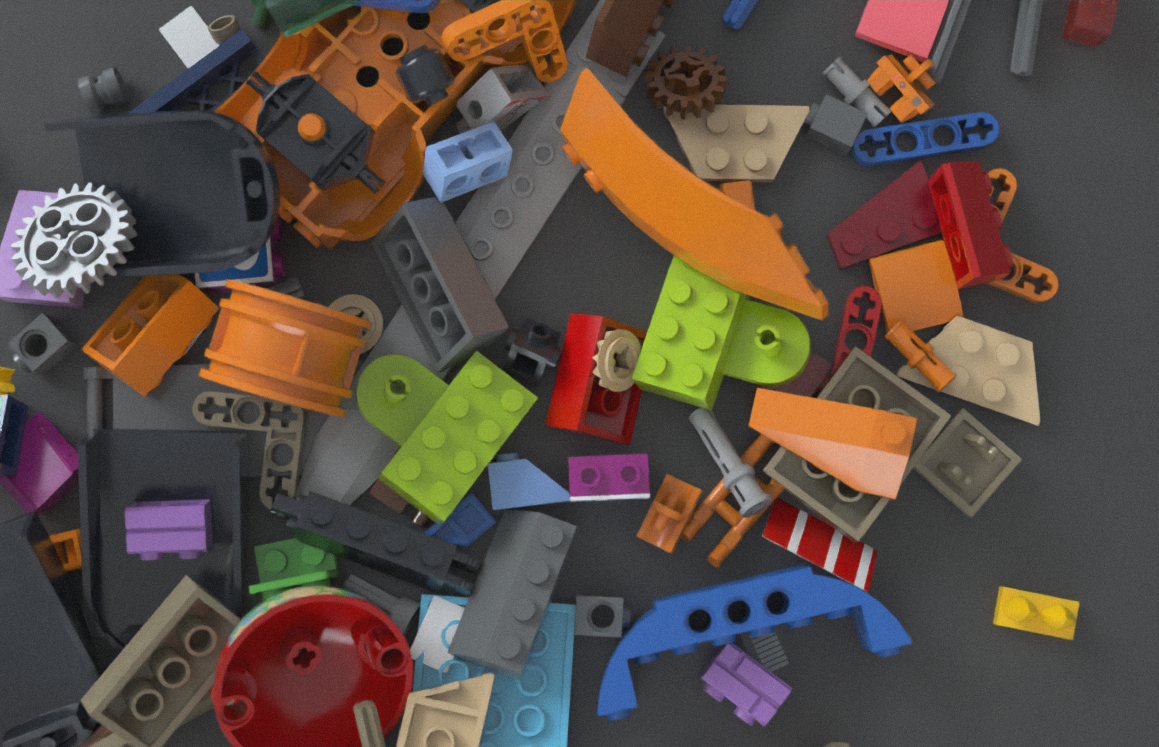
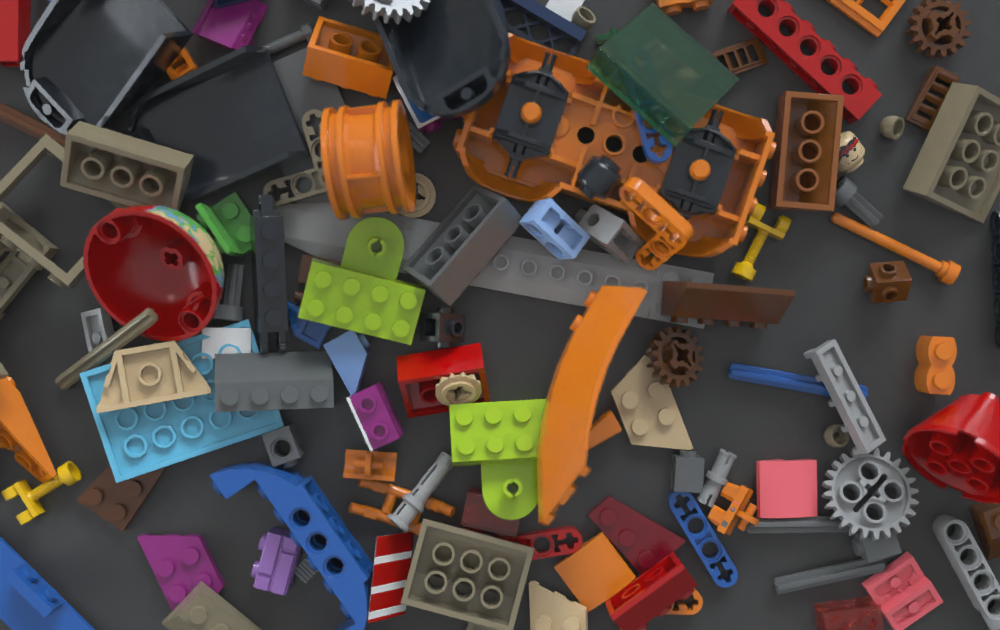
camera: 65 degrees right, 5 degrees up
(169, 528) = (221, 129): medium lavender brick -> none
(847, 441) = (463, 571): orange wedge -> none
(920, 356) = (546, 594): orange pin -> none

